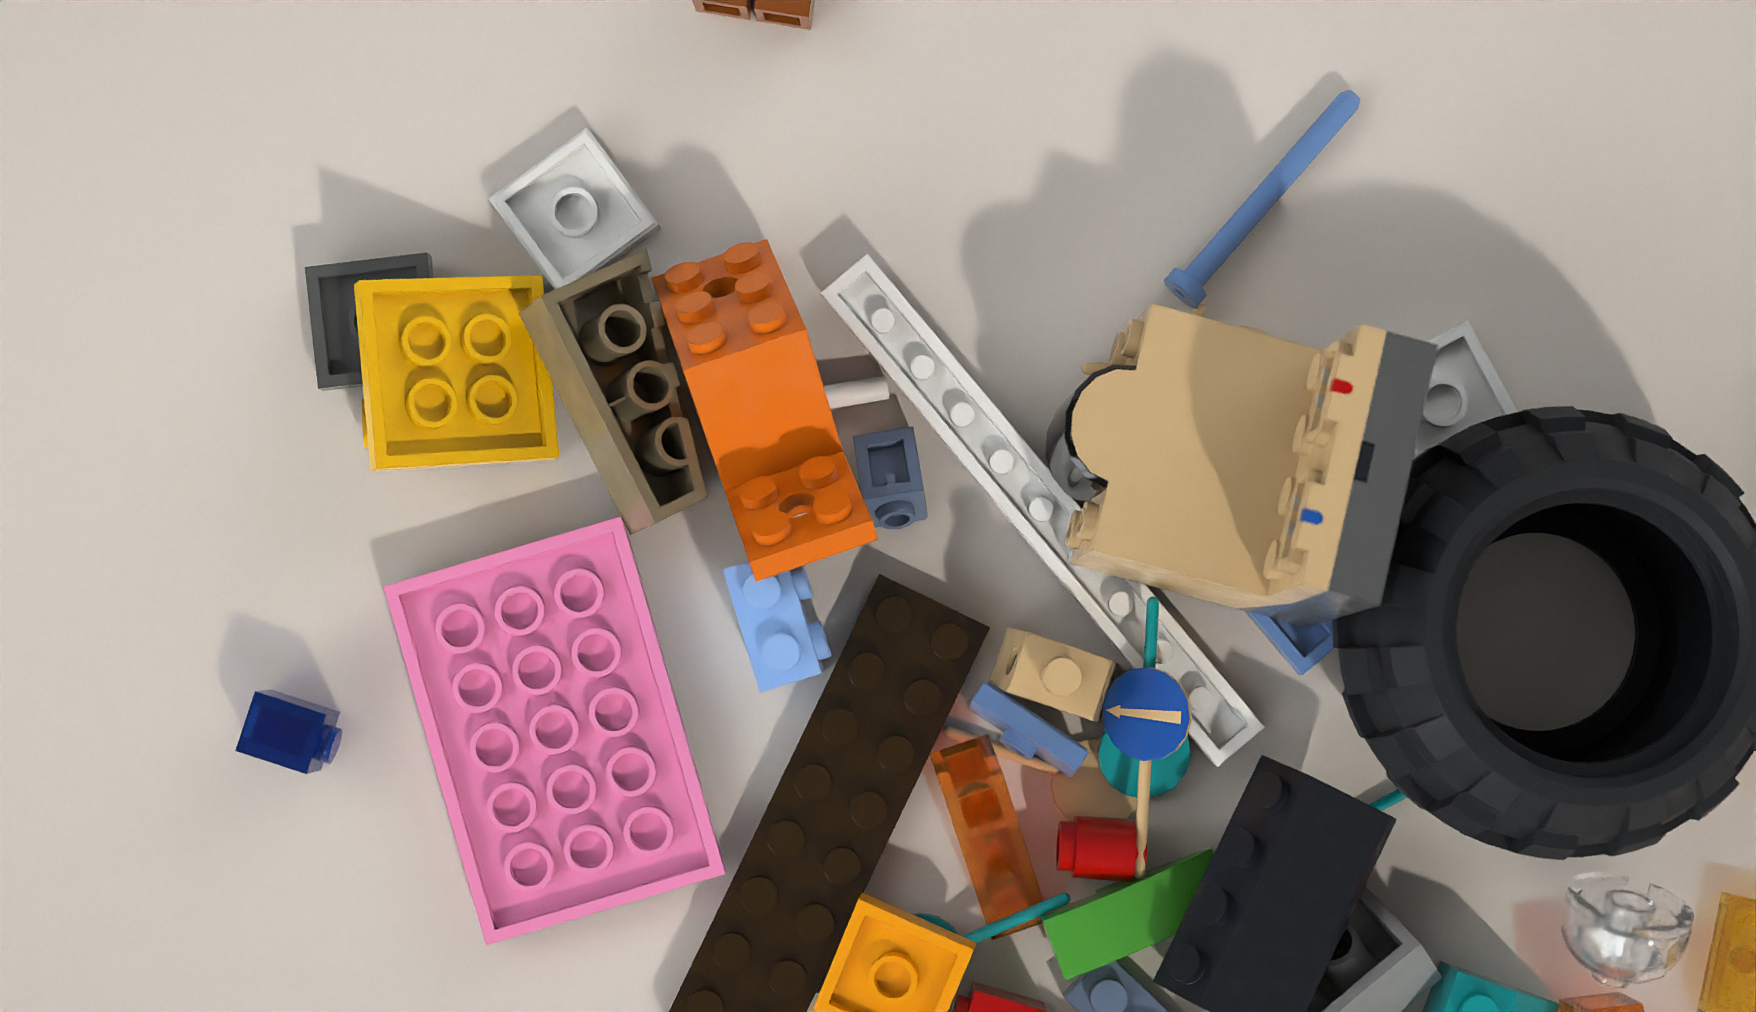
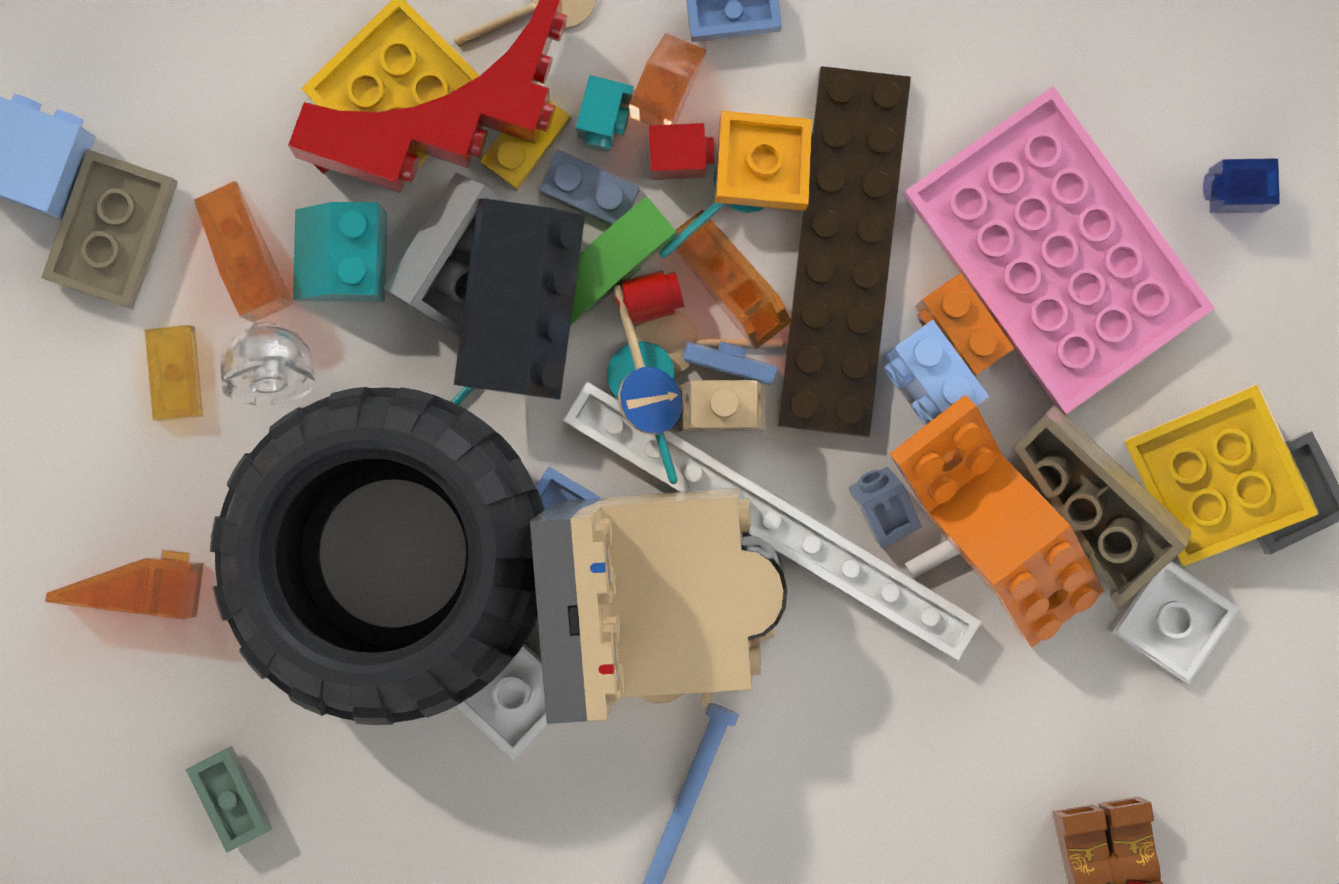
camera: 165 degrees right, 0 degrees up
(712, 672) = (965, 324): none -> orange brick

